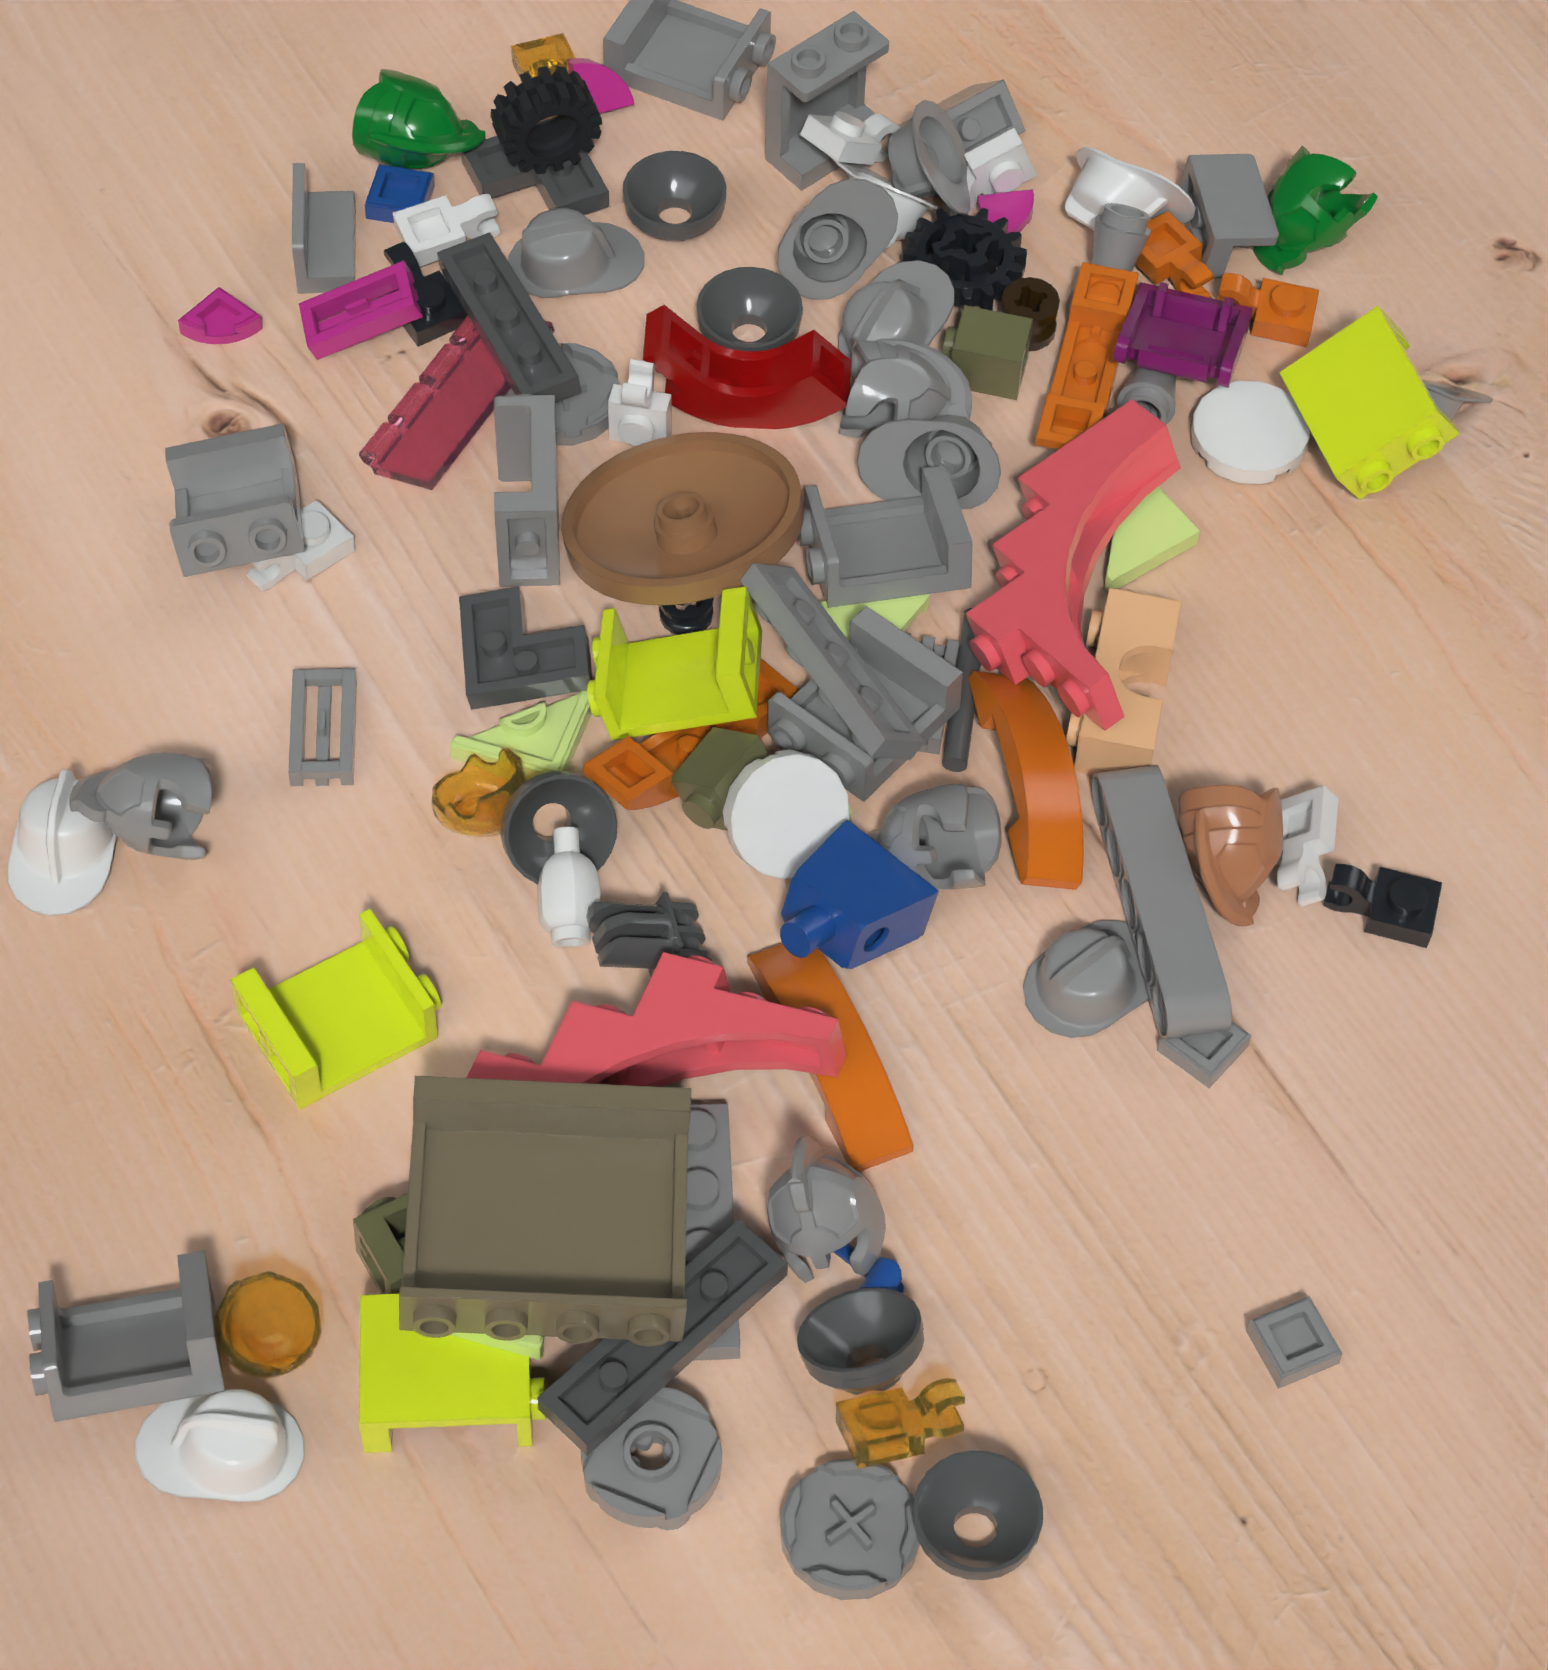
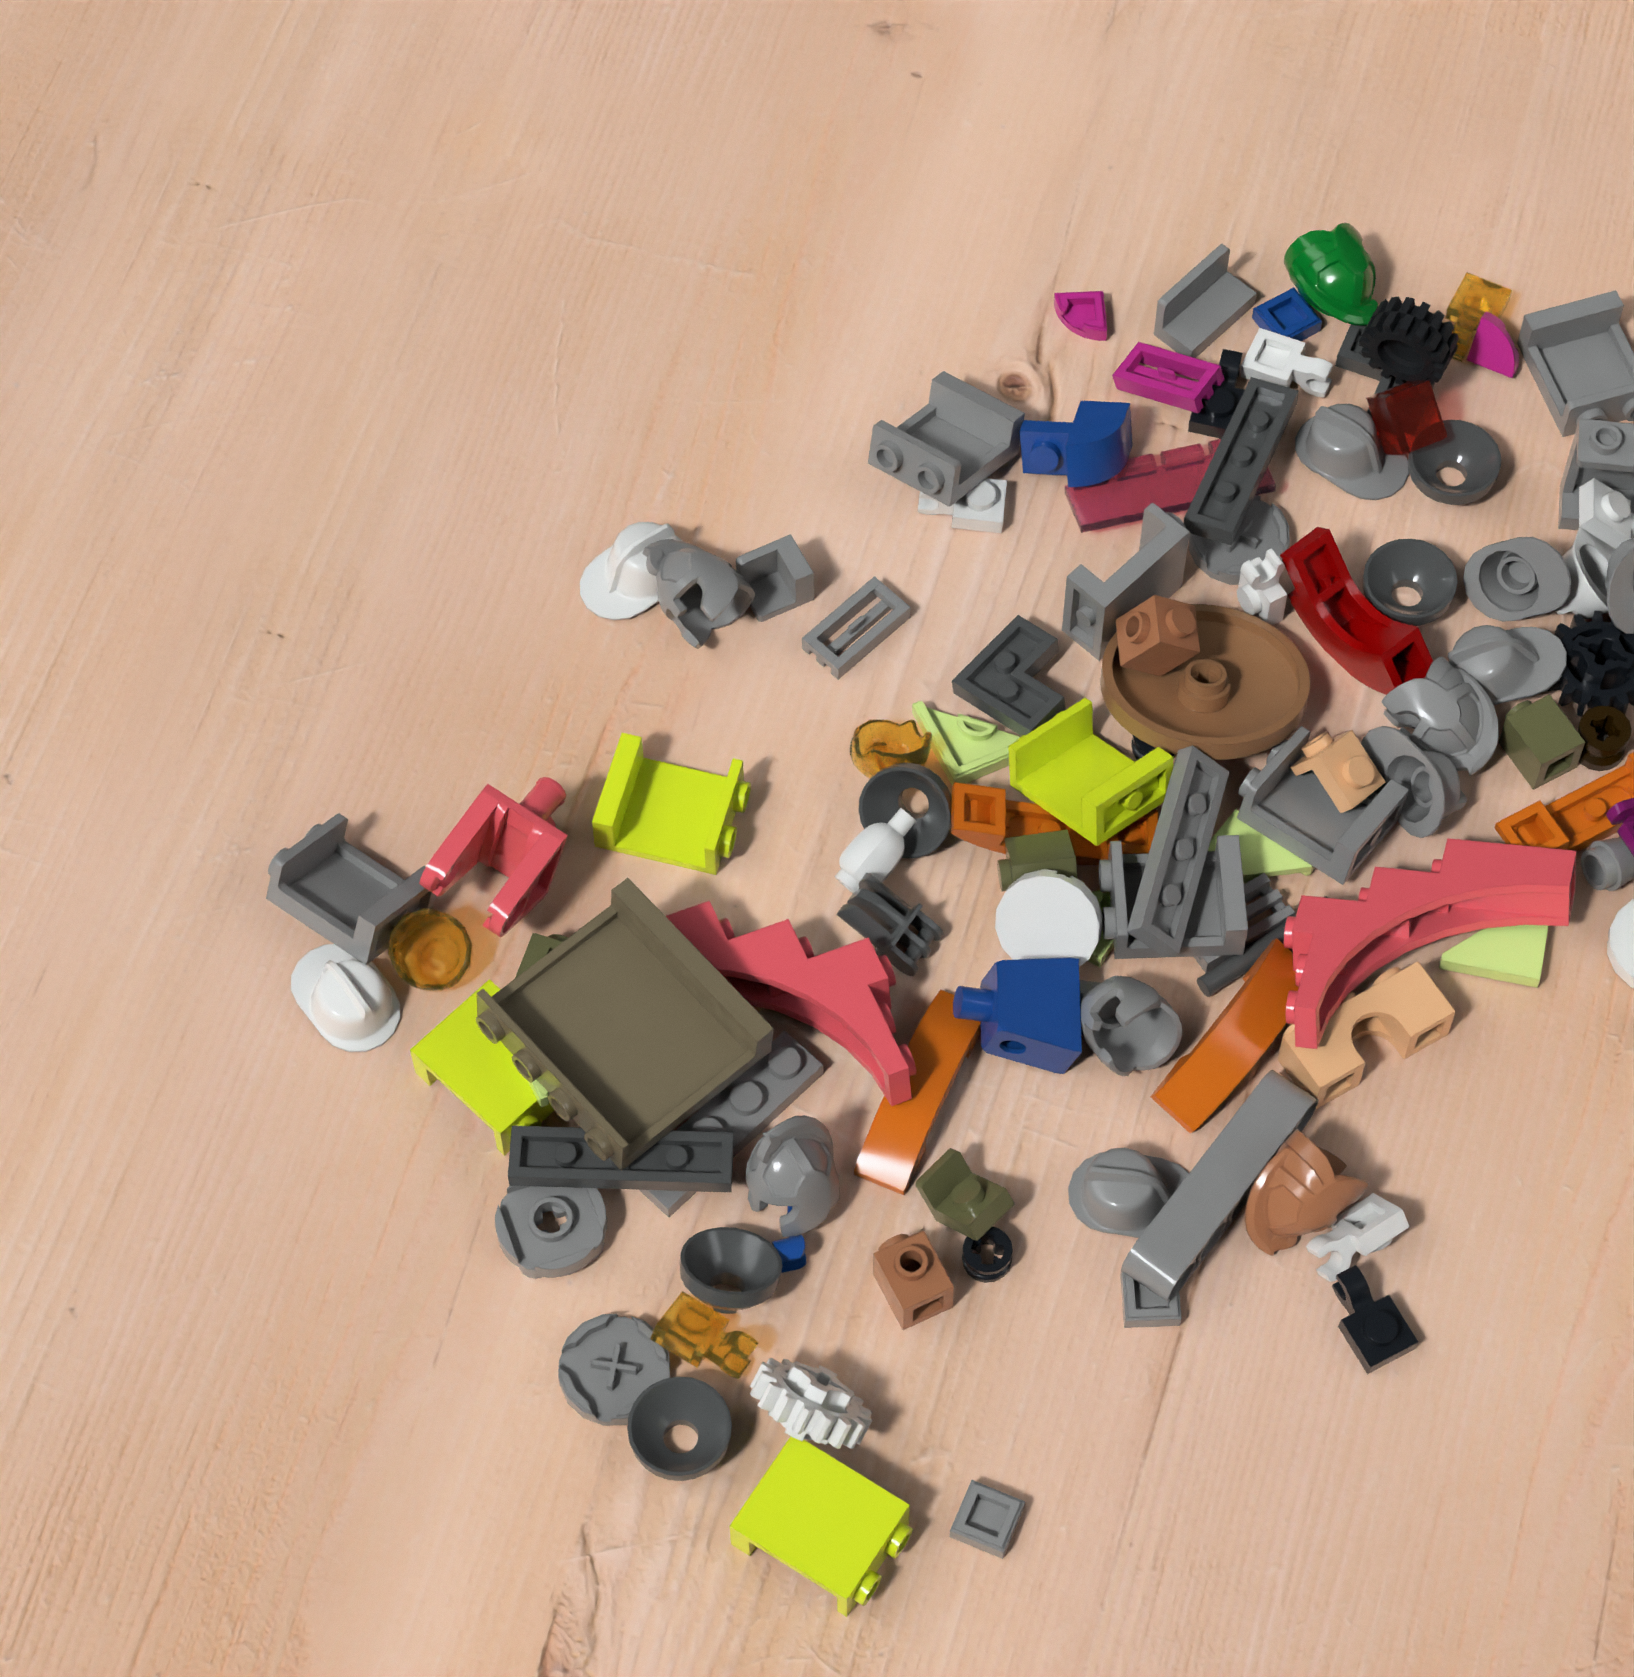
camera: 50 degrees right, 5 degrees up
(214, 730) = (777, 577): none -> light grey panel
(250, 1157) = (512, 839): none -> coral piece
(359, 418) = (1085, 450): none -> blue brick
(603, 184) = (1407, 417): none -> clear red panel
(612, 506) = (1157, 635): none -> nougat brick
(871, 490) = (1341, 768): none -> light nougat bracket
(977, 1100) = (961, 1197): none -> olive bracket
(1011, 1204) = (912, 1278): none -> nougat brick
(1041, 1112) = (991, 1272): none -> black bush
(1066, 1379) = (811, 1403): none -> white gear
(1181, 1471) = (823, 1522): none -> neon yellow panel

